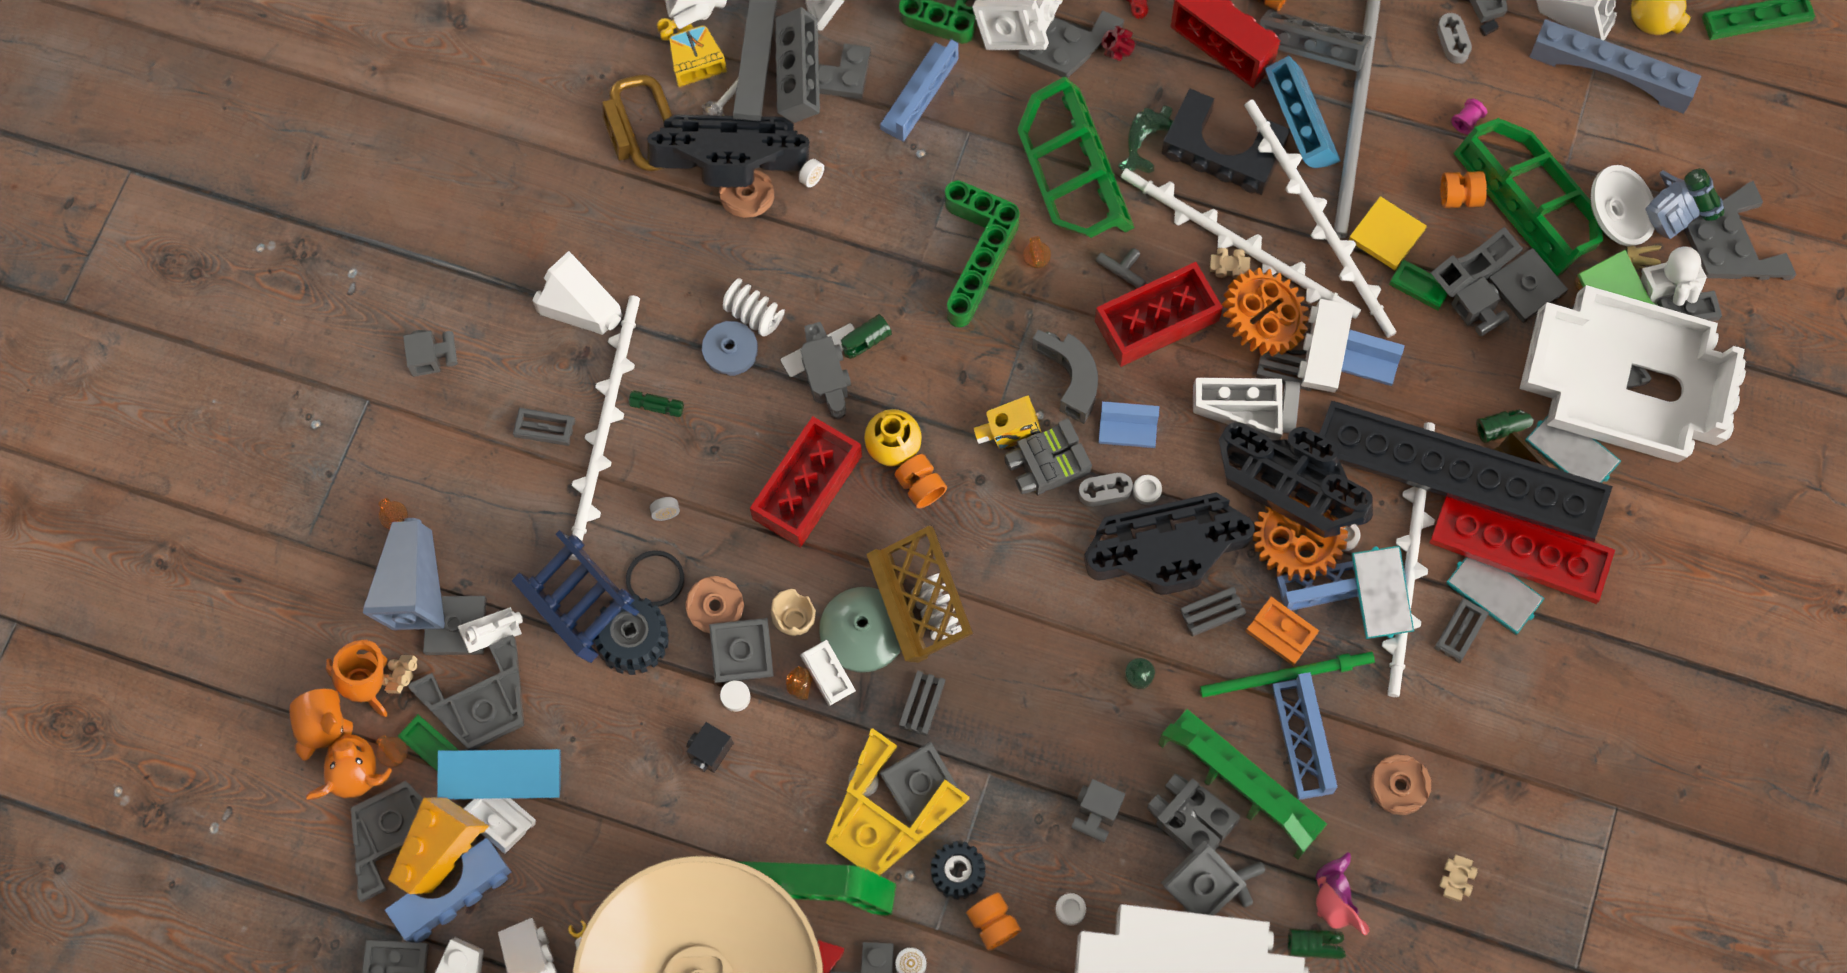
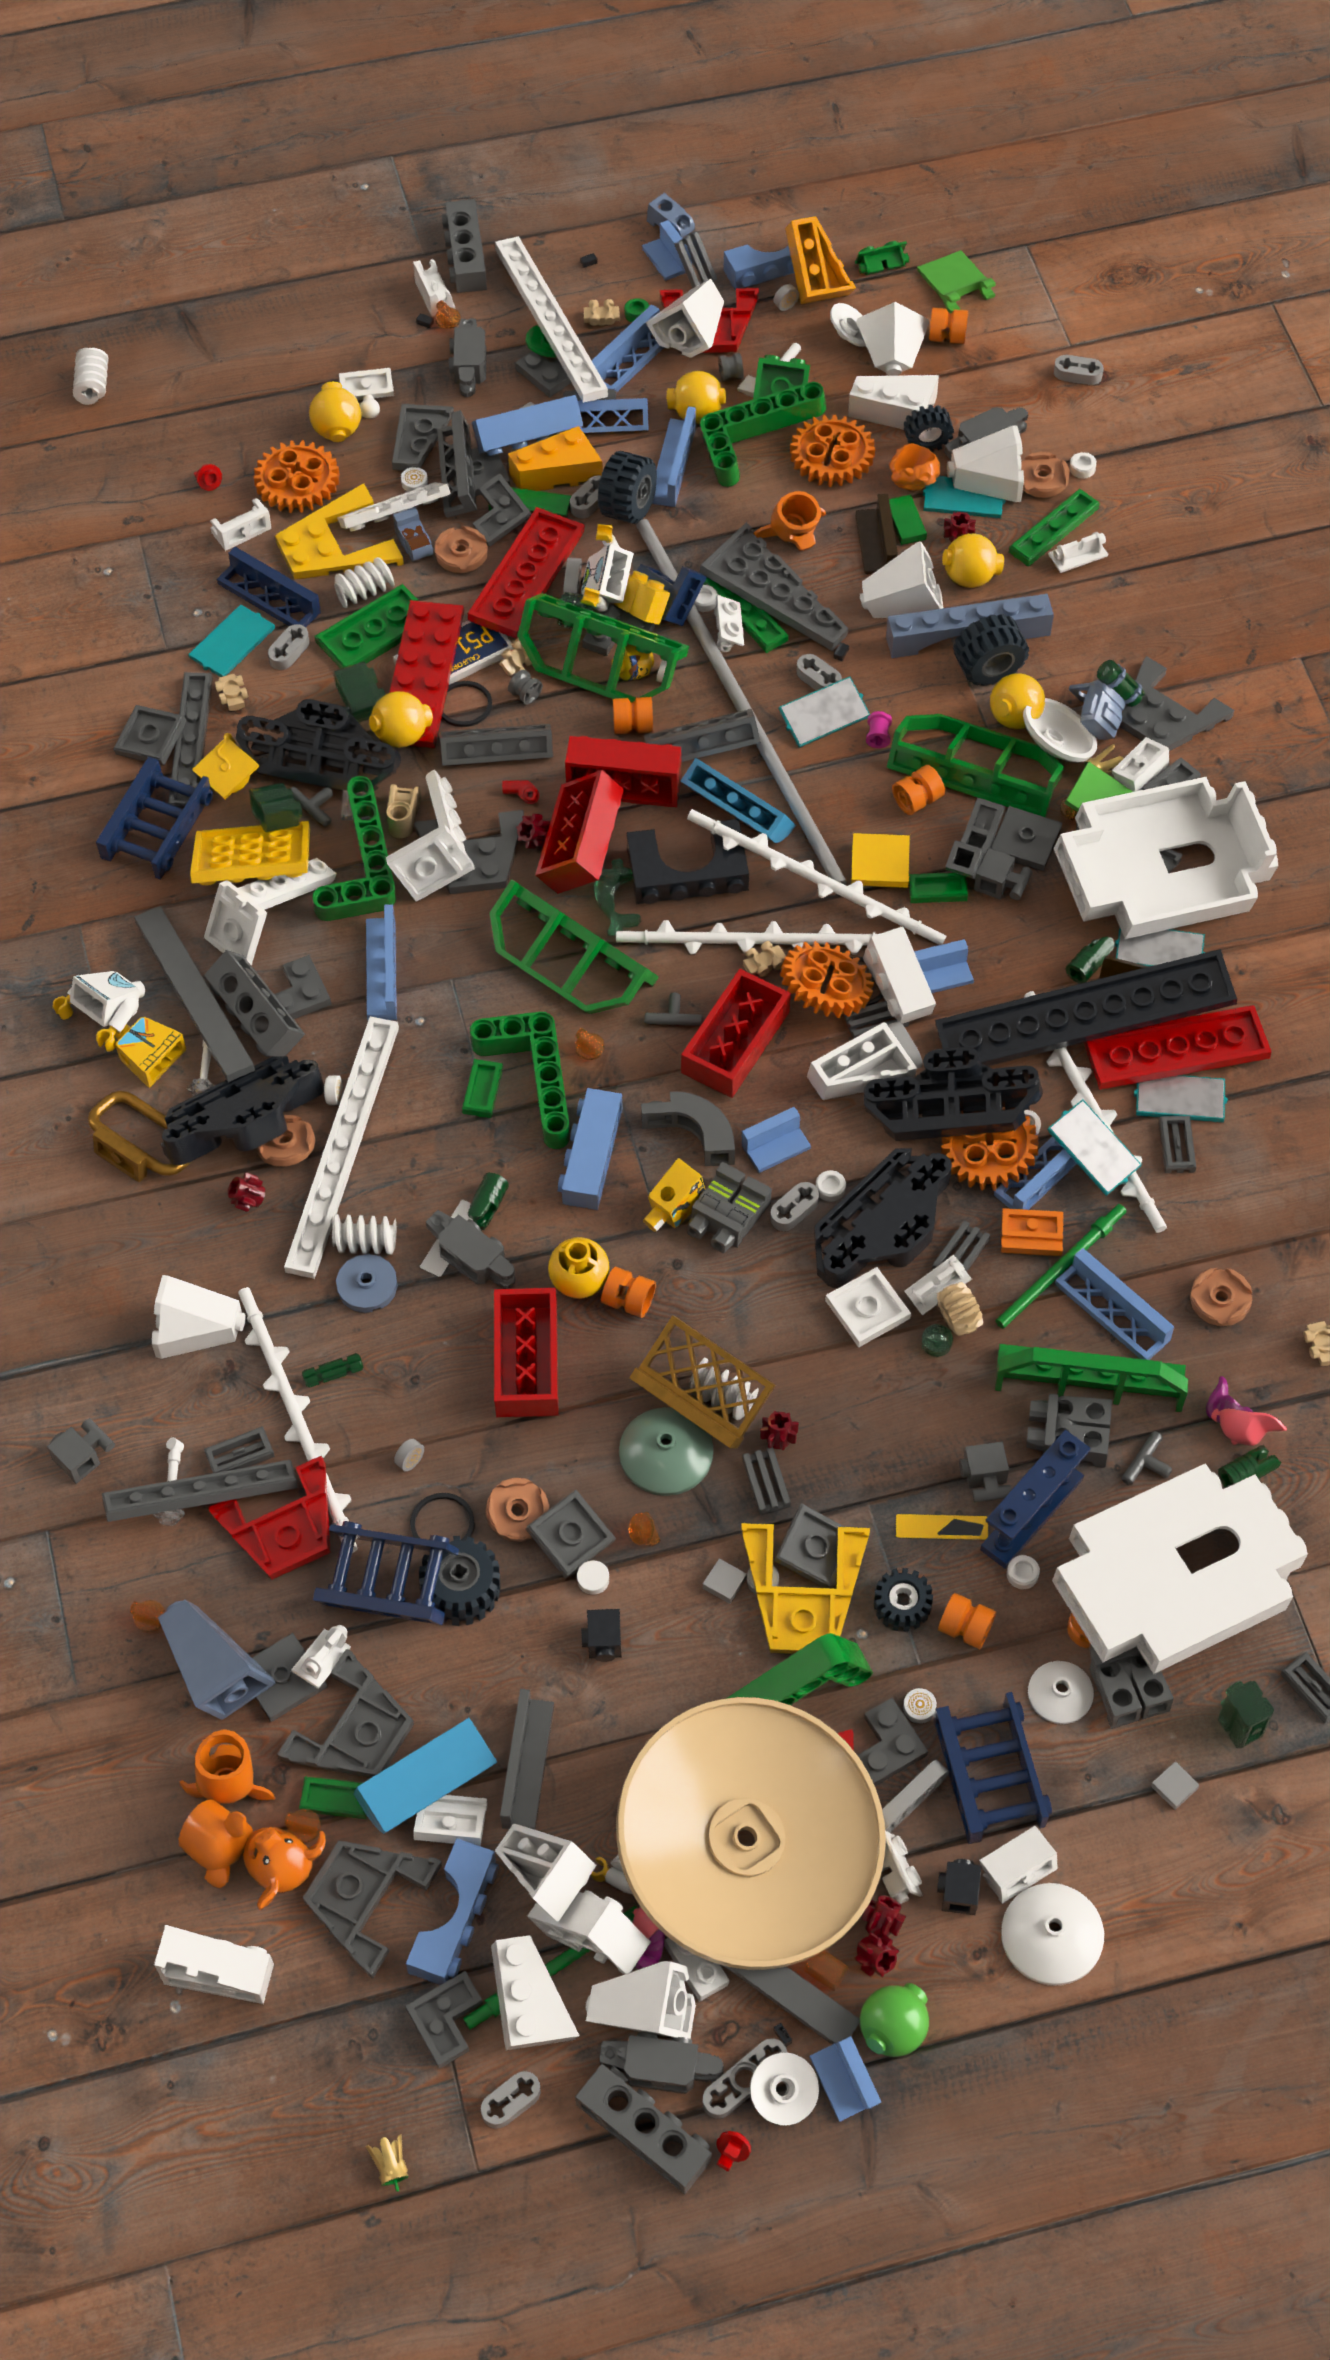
camera: 35 degrees left, 10 degrees down
(253, 817) = (213, 1965): none -> white wedge
(401, 673) = (262, 1750): tan piece -> none
(434, 844) = (414, 1872): light orange wedge -> none
(459, 442) = (176, 1447): none -> piece
(490, 440) = (199, 1490): none -> dark grey tile
(527, 908) = (546, 1866): none -> white wedge
(533, 516) = (288, 1534): none -> red wing
(582, 810) = (526, 1762): none -> dark grey fence
(687, 218) = (246, 1192): none -> dark red gear
(787, 223) = (341, 1148): none -> white plate
(792, 612) = (595, 1472): tan hair -> none
(827, 672) = (664, 1505): white plate -> none
(832, 764) = (724, 1581): none -> light grey tile
(929, 239) = (482, 1088): none -> green tile
(956, 677) = (779, 1430): none -> dark red gear
(976, 343) = (591, 1149): none -> medium blue brick
(1034, 830) = (941, 1526): none -> yellow sticker
(1103, 611) = (868, 1307): none -> white plate
(1115, 858) = (1035, 1499): none -> dark blue fence
(1151, 66) = (579, 832): none -> red brick
(1171, 628) = (925, 1290): none -> white hinge
(1172, 660) = (959, 1309): none -> tan gear
(1203, 882) = (1120, 1471): dark grey plate -> none
(1434, 74) = (824, 712): none -> flat silver piece
(1605, 151) = (1012, 696): none -> yellow brick
(1613, 99) = (991, 649): none -> black wheel
(1683, 270) = (1147, 751): white piece -> none
(1762, 52) = (1079, 553): none -> white hinge

